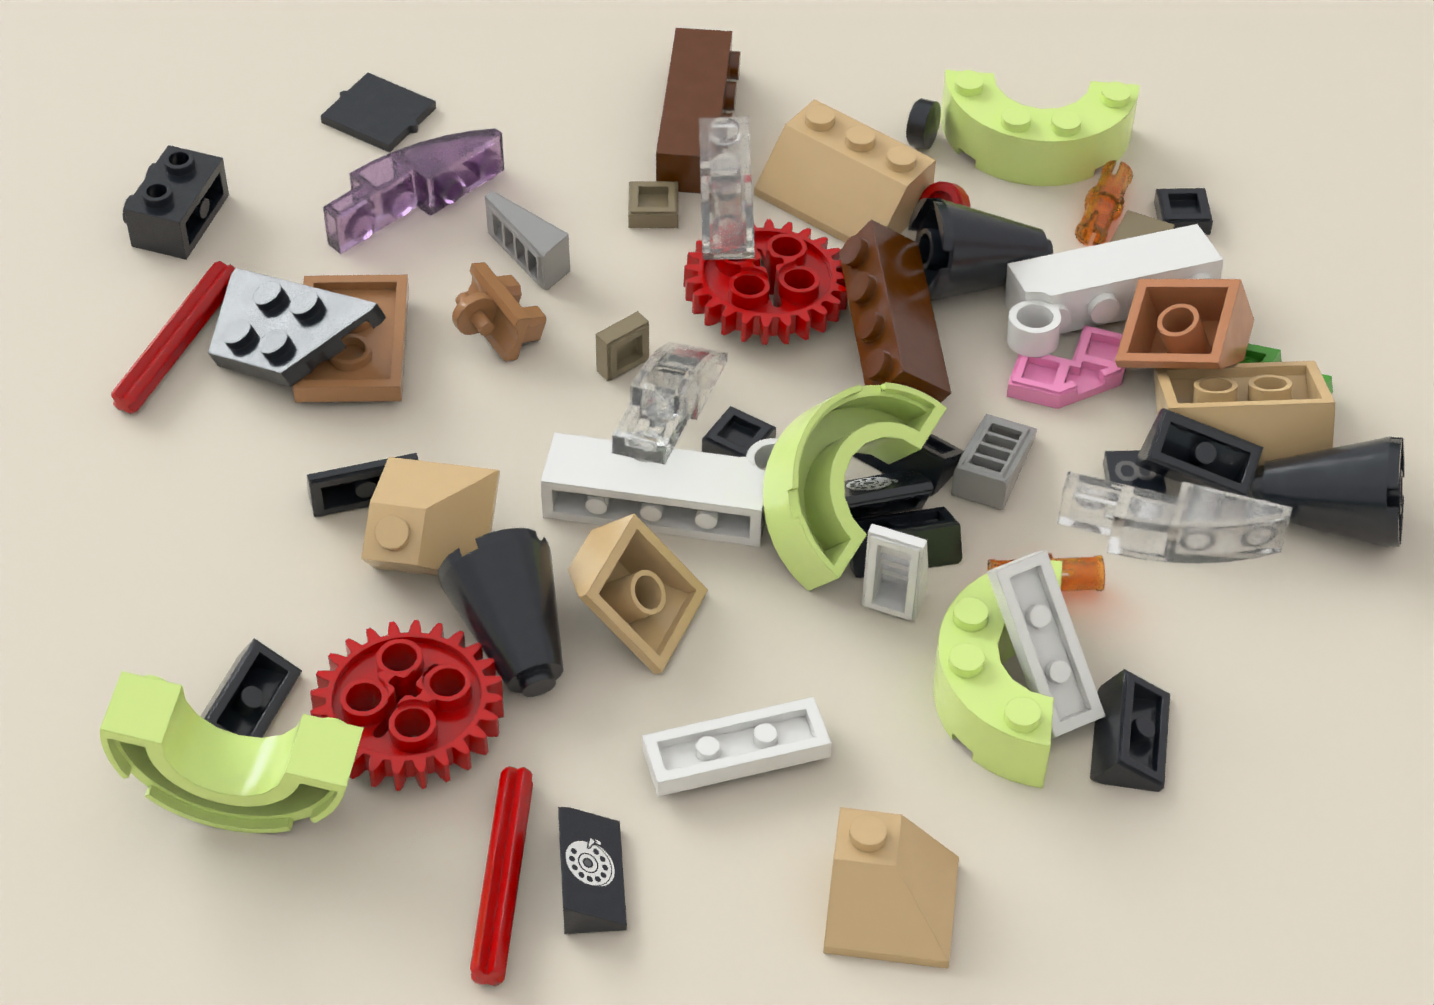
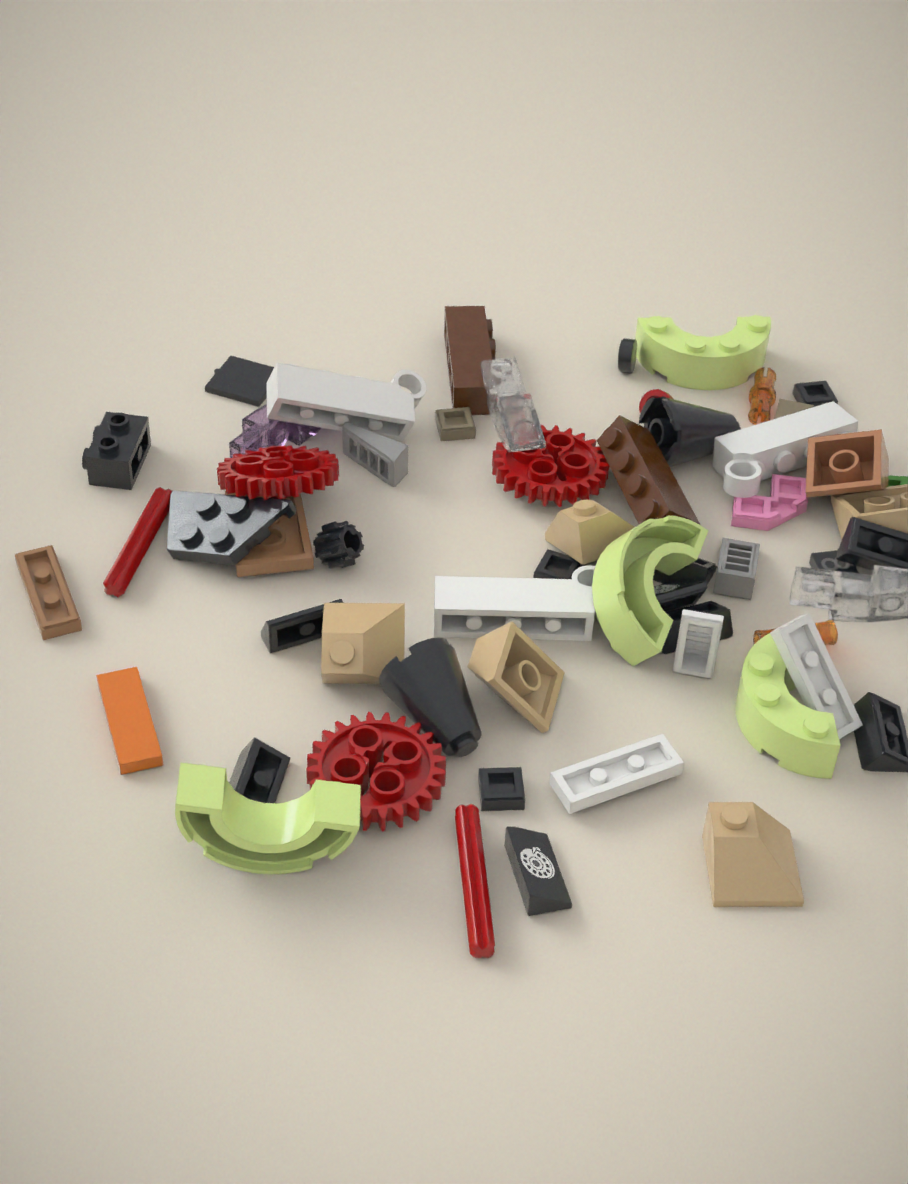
camera: 10 degrees left, 5 degrees down
(37, 398) = (48, 592): none -> medium nougat tile
(100, 593) = (129, 720): none -> orange tile
(376, 258) = (278, 472): none -> red gear
(438, 371) = (338, 544): none -> black gear
(479, 156) = (332, 399): none -> white hinge
(495, 312) = (367, 502): medium nougat hips -> none
(574, 749) = (501, 789): none -> black tile
(622, 346) = (462, 516): dark tan tile -> none
(663, 399) = (508, 548): clear slope -> none
(788, 382) = (585, 530): none -> tan slope
(843, 173) = (585, 391): tan slope -> none

